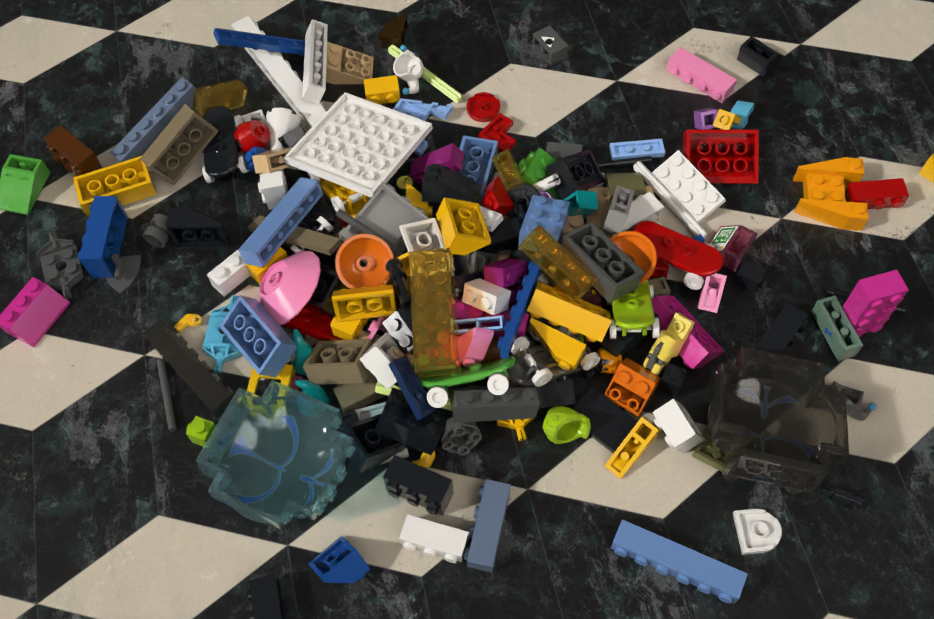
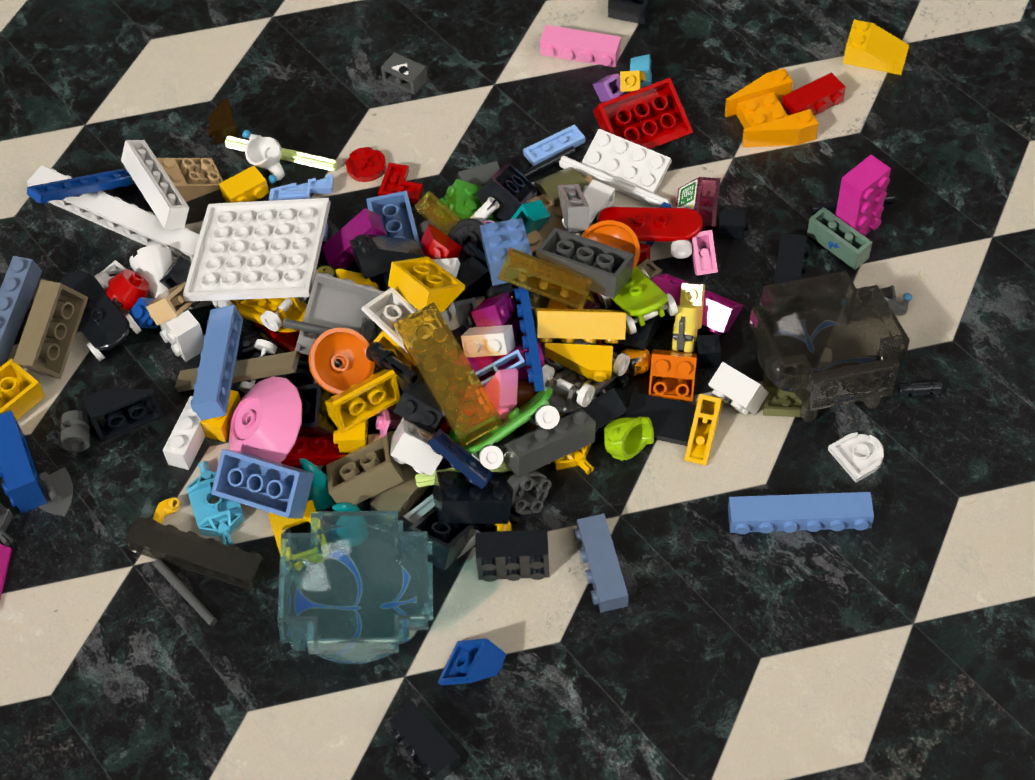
camera: 25 degrees left, 5 degrees down
(200, 430) = (250, 608): lime brick -> none
(227, 94) = (69, 257): clear yellow brick -> none
(434, 539) = (554, 599): white brick -> none

